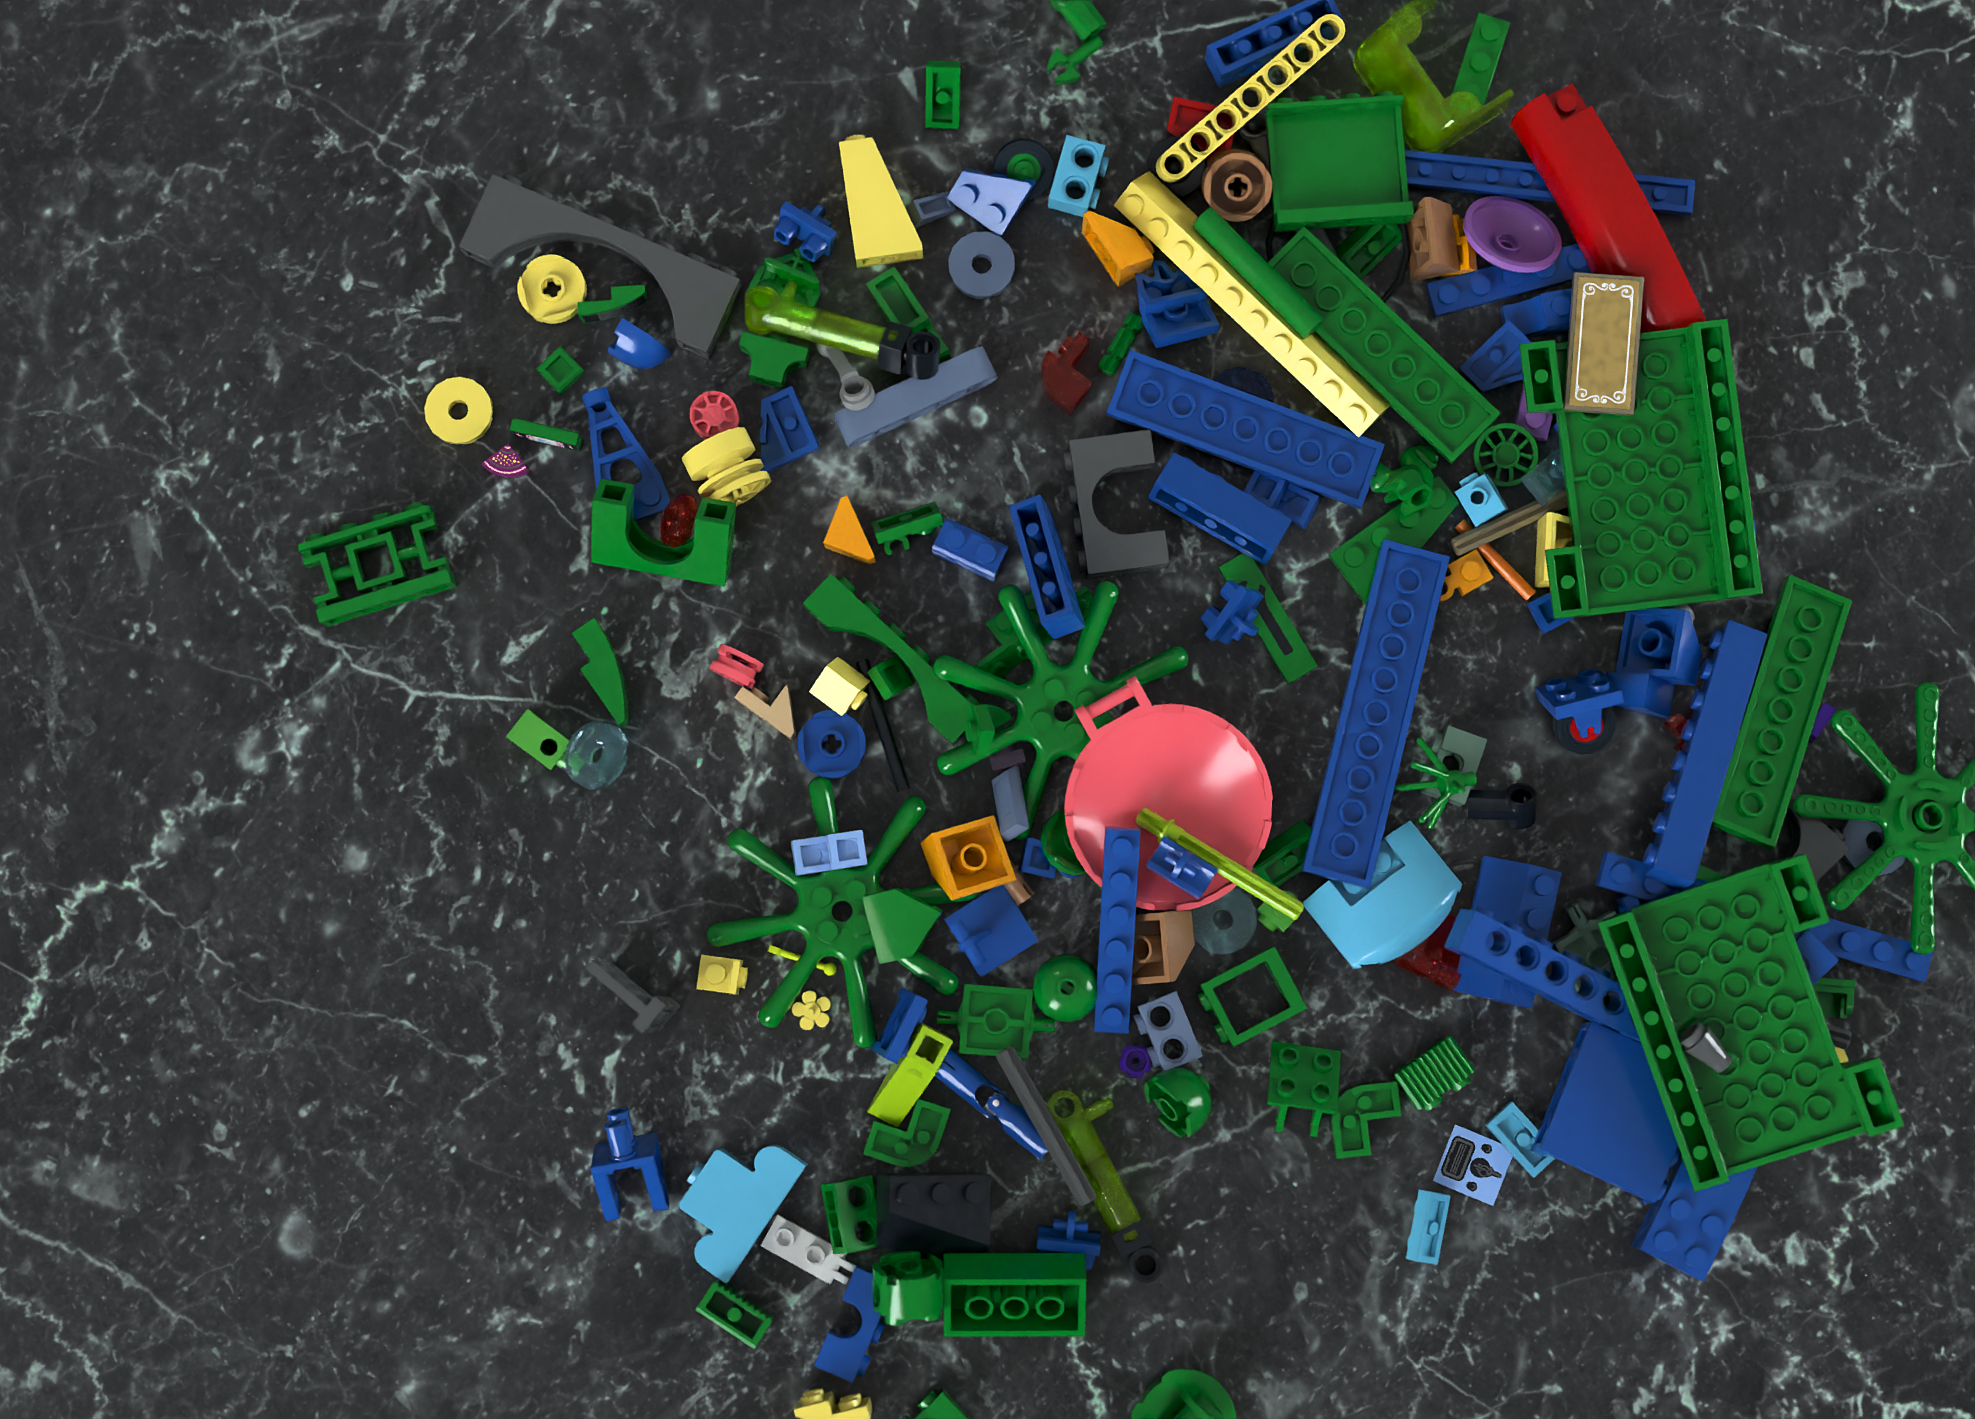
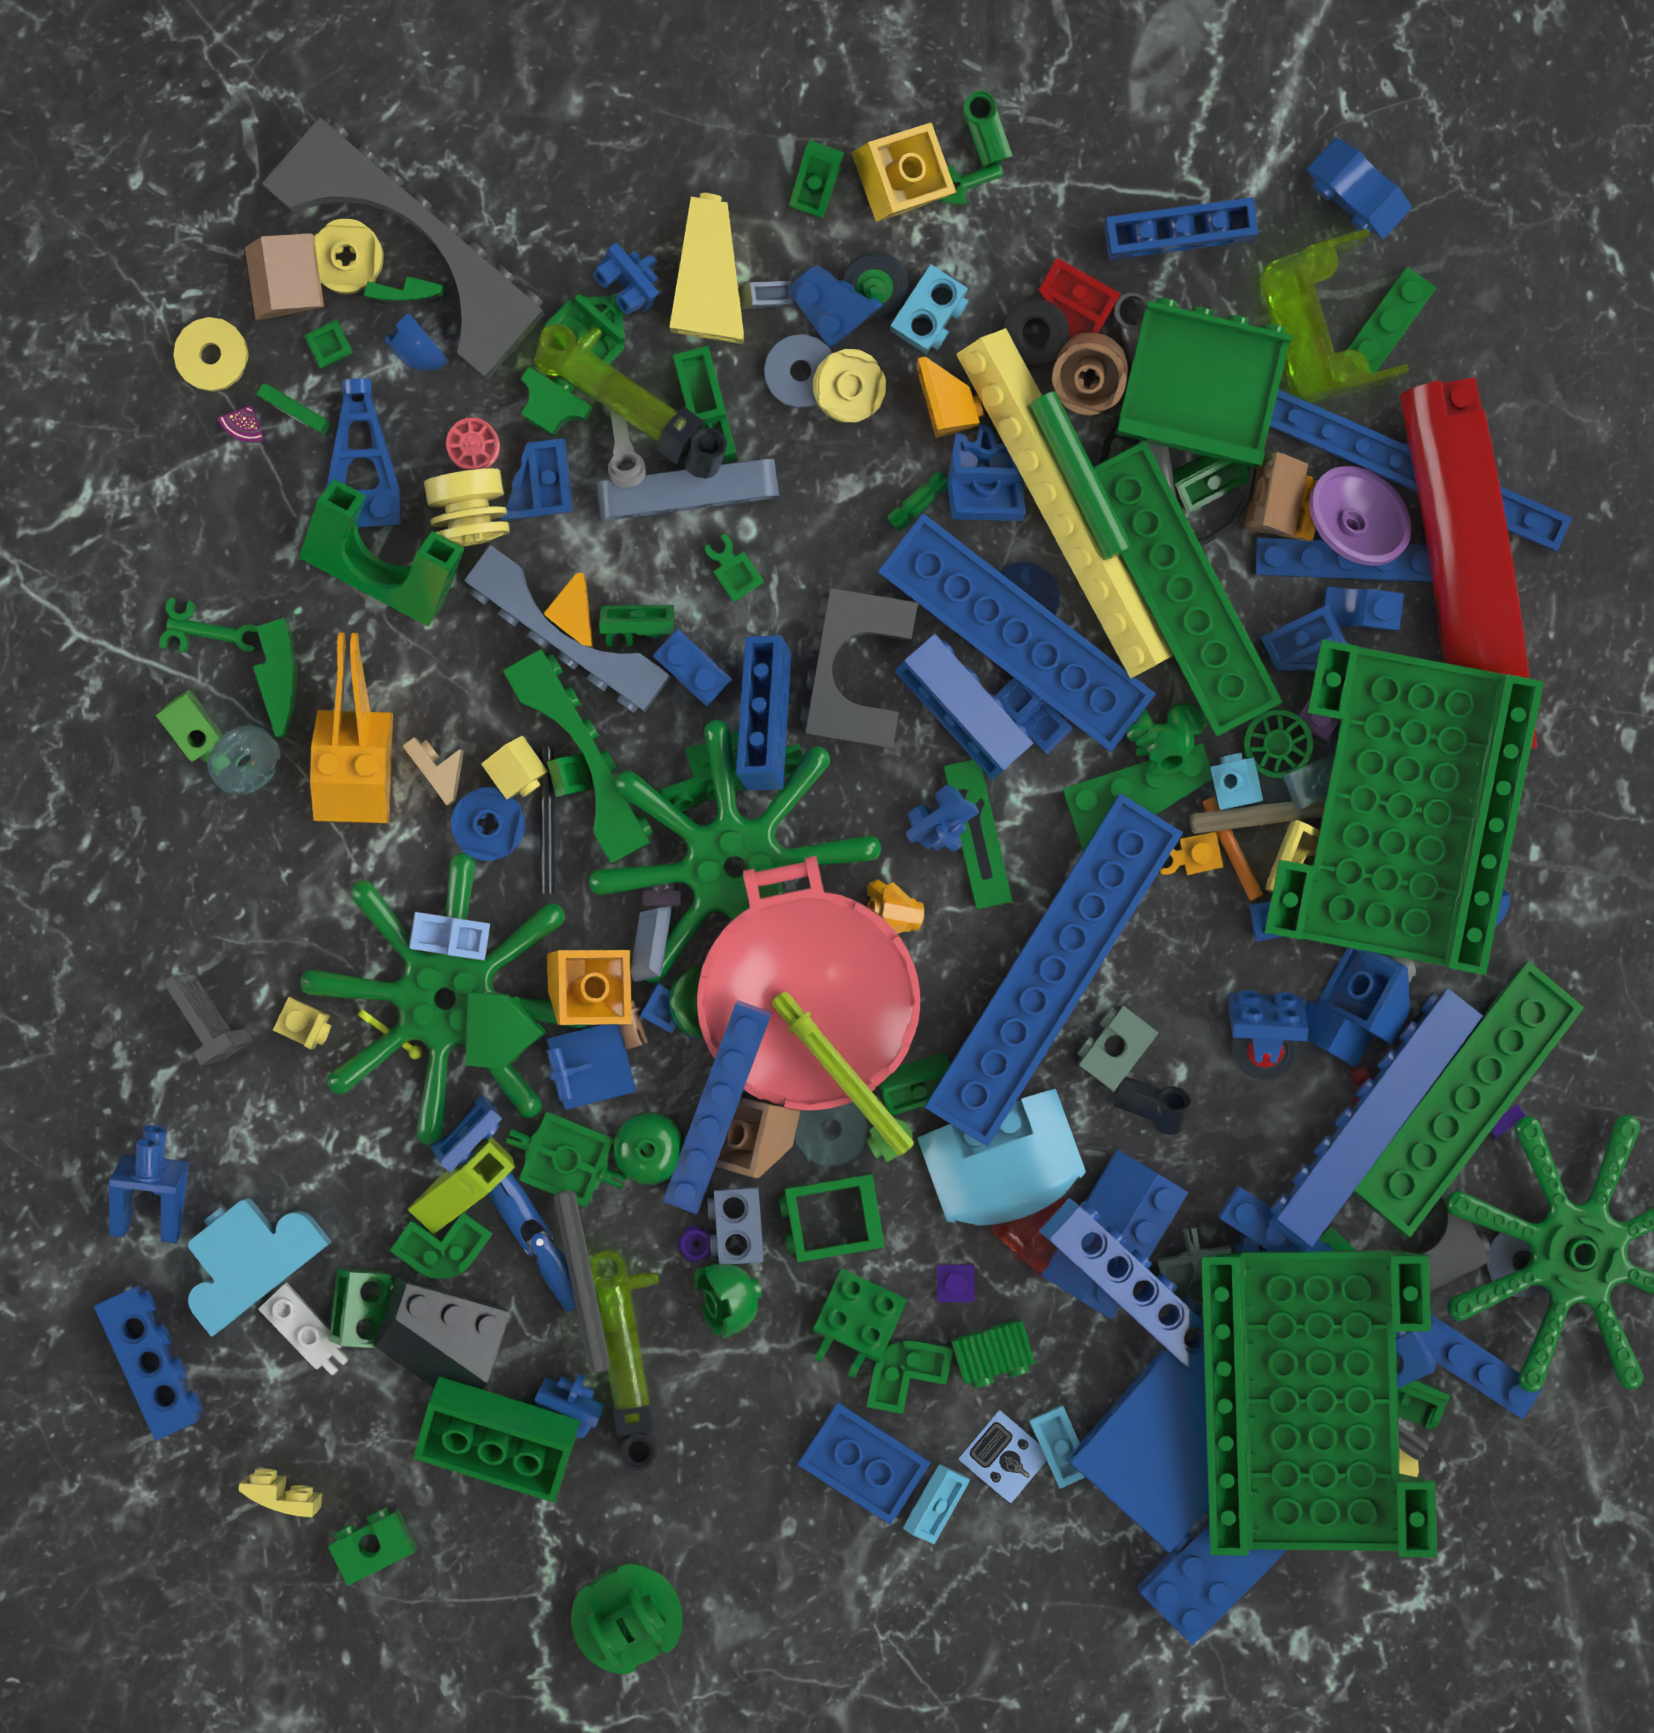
camera: 15 degrees right, 5 degrees up
(385, 592) = (78, 517): green fence -> none
(502, 321) = (284, 275): none -> medium nougat slope
(503, 655) = (179, 625): none -> green bar
(678, 520) = (401, 543): clear red gear -> none
(691, 719) = (351, 752): none -> light orange slope
(702, 1372) = (161, 1417): none -> blue brick
(735, 670) = (411, 716): coral wheel -> none
(735, 1313) = (212, 1368): green brick -> none
(812, 1010) = (384, 1089): light yellow plant -> none
(843, 1353) = (310, 1443): blue arch -> none
(907, 1287) = (391, 1399): green brick -> none
(915, 573) = (504, 584): none -> sand blue arch
(981, 456) = (736, 573): none -> green plate
(981, 726) = (642, 857): green plate -> none
(1016, 65) = (903, 171): none -> yellow slope
(1028, 263) = (849, 385): none -> light yellow tile
(1058, 378) = (841, 516): clear red brick -> none
(1181, 868) = (801, 1066): blue hips -> none
(1217, 701) = (895, 906): none -> light orange rock
(1264, 90) = (1150, 289): light yellow beam -> none
(1350, 1211) = (864, 1463): none -> blue plate
(1378, 1022) = (955, 1283): none -> dark purple plate
(1447, 782) = (1102, 1064): green plant -> none
(1603, 343) = (1410, 664): pearl gold tile -> none
(1703, 1044) = (1267, 1412): dark grey cone -> none

